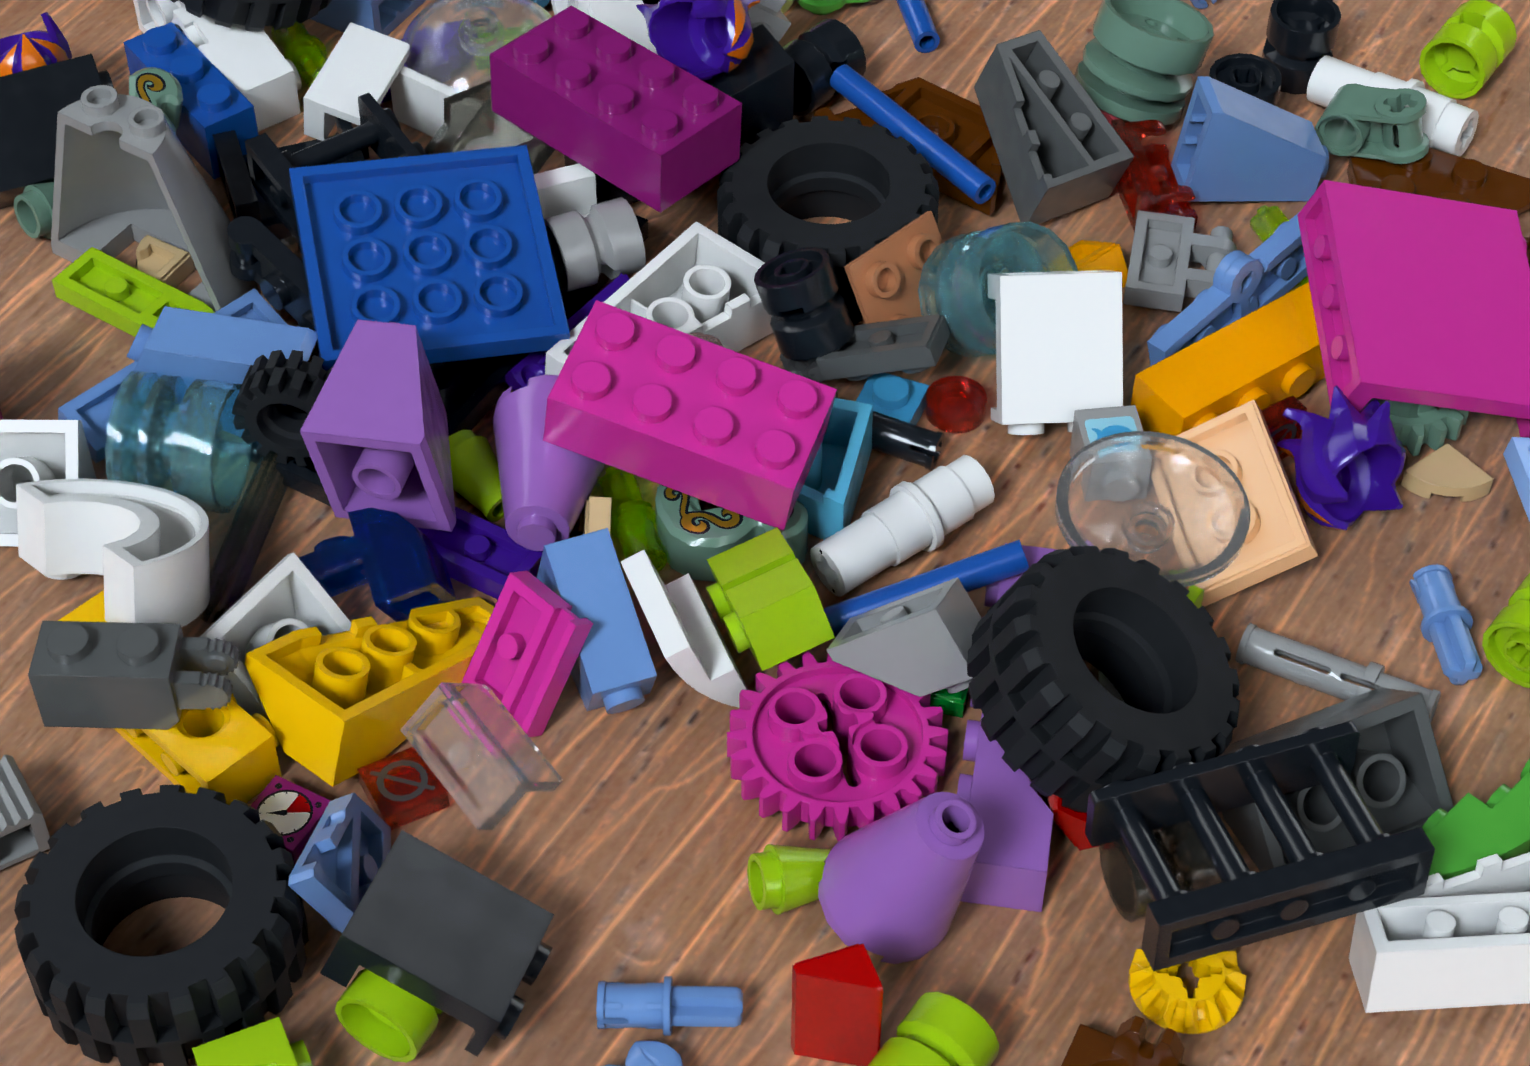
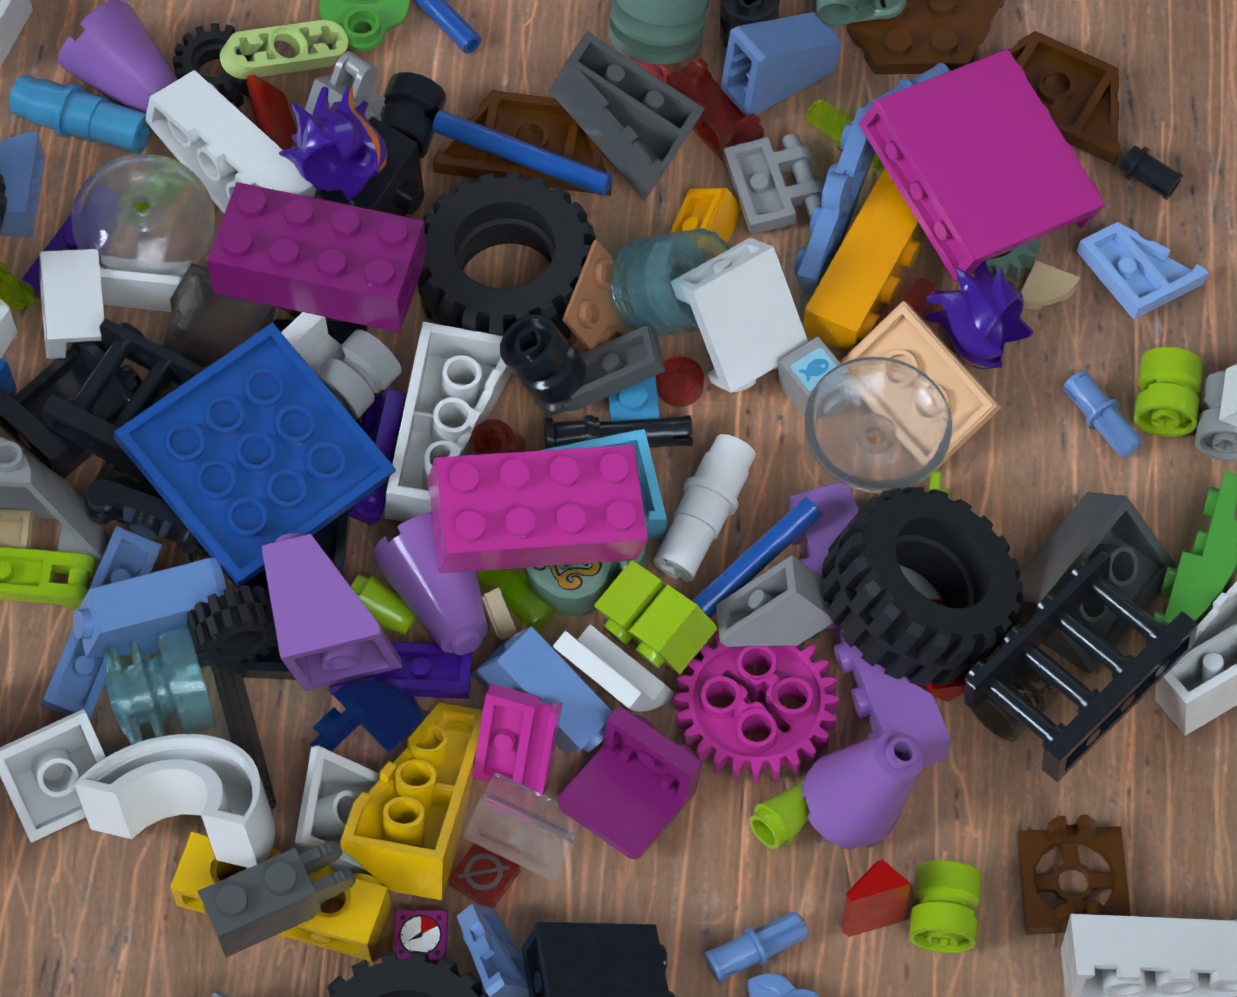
camera: 25 degrees left, 15 degrees up
(632, 765) = (632, 785): none -> magenta bracket
(1166, 1001) = (1088, 780): yellow gear -> none
(1263, 648) = (992, 490): light grey pin -> none

